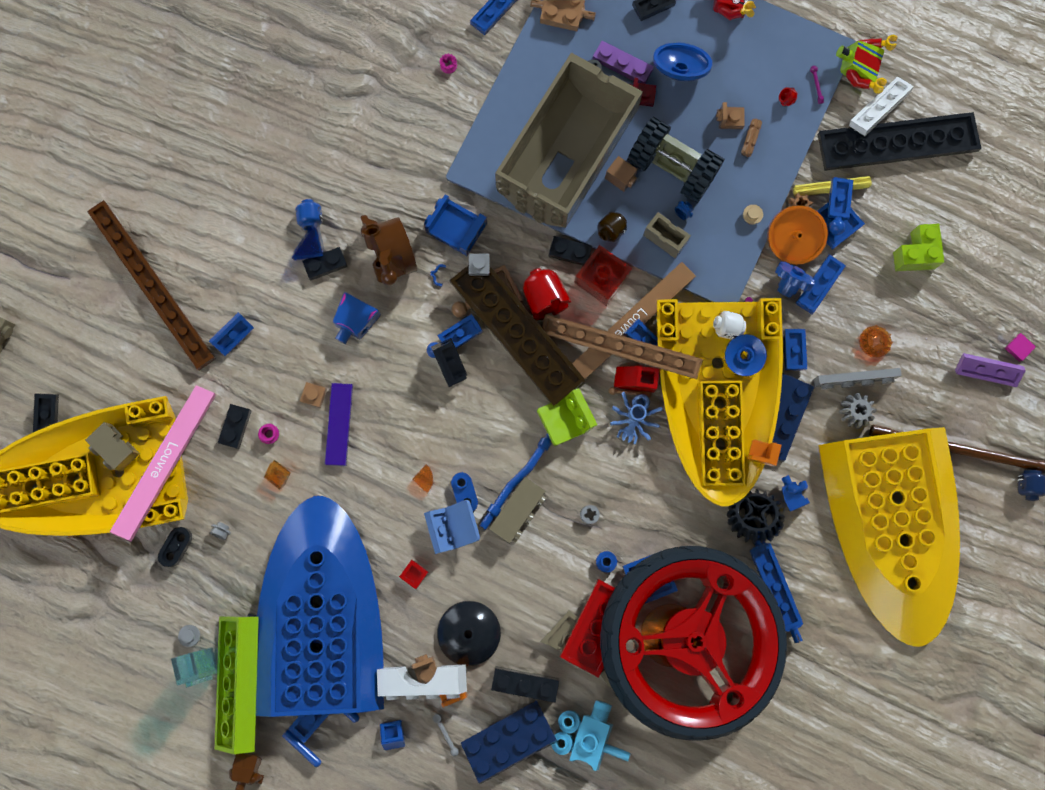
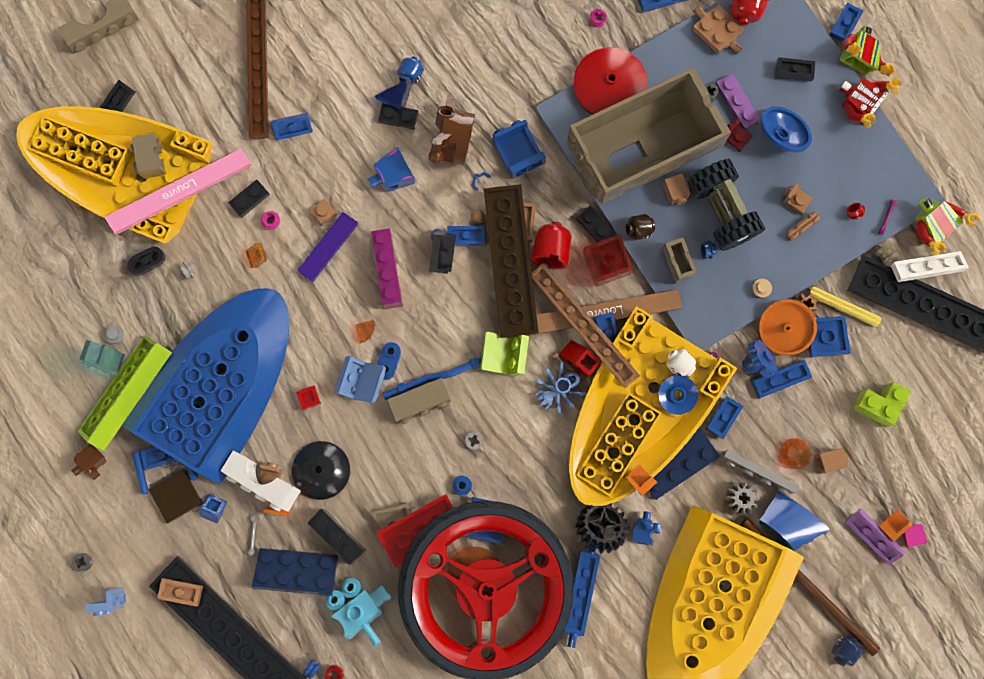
camera: 35 degrees right, 0 degrees up
(349, 747) = (175, 496): none -> dark brown tile
(408, 409) = (387, 268): none -> magenta brick
(479, 265) = (514, 190): light grey plate -> none
(496, 113) = (593, 77): none -> red dish
(837, 117) = (886, 253): none -> dark tan wheel
(839, 204) = (839, 324): blue plate -> none
(910, 327) = (832, 460): none -> medium nougat brick
(913, 404) = (791, 522): none -> slope
(1001, 348) = (895, 525): none -> orange panel

